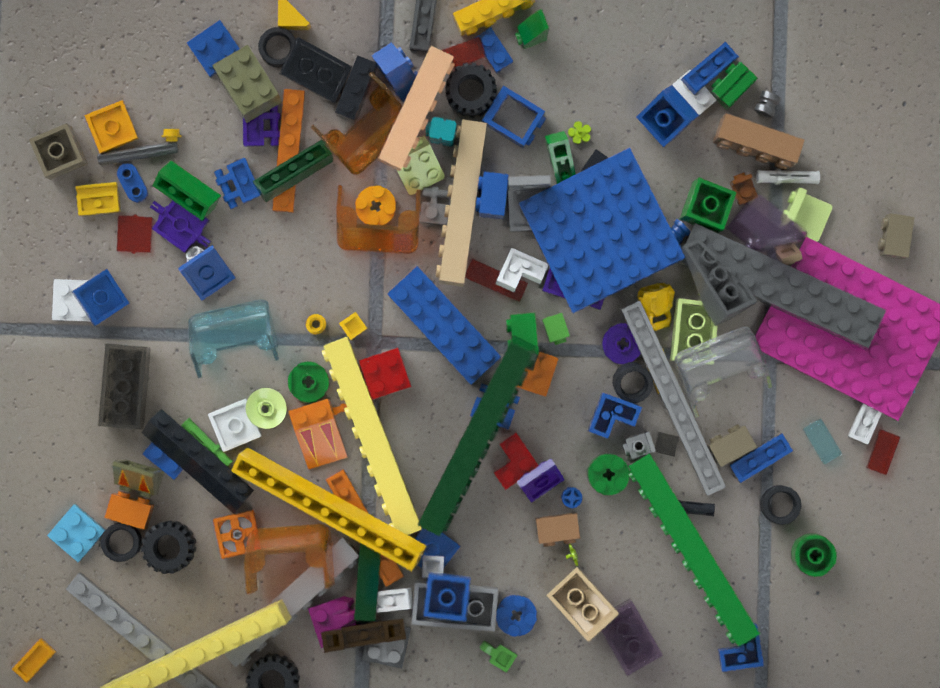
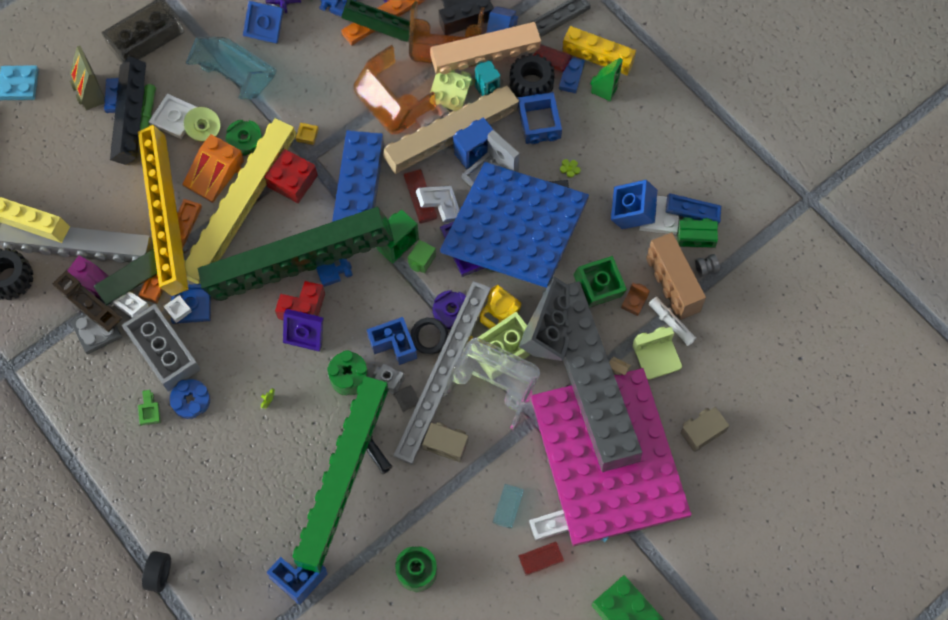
camera: 50 degrees right, 20 degrees down
(105, 542) = (30, 99): black tyre -> none
(129, 510) = (59, 99): orange brick -> none
(151, 551) = (47, 127): black tyre -> none
(233, 532) = (97, 175): orange piece -> none
(309, 538) = (126, 218): clear orange windscreen -> none
(311, 319) = (287, 107): yellow plate -> none
(376, 194) = (403, 77): light orange plate -> none
(447, 596) = (160, 325): blue brick -> none
(541, 376) = (374, 276): orange plate -> none
(557, 528) = (278, 373): medium nougat brick -> none
(560, 156) = (542, 162): green slope -> none
(571, 501) = (307, 361): blue wheel -> none
(582, 604) = (235, 427): tan slope -> none
(631, 639) = (237, 485): clear purple brick -> none
(680, 230) = (564, 277): blue wheel -> none
(760, 458) = (455, 471): blue plate -> none
(765, 227) = (620, 321): clear purple windscreen -> none
(781, 489) = (432, 499): black tyre -> none

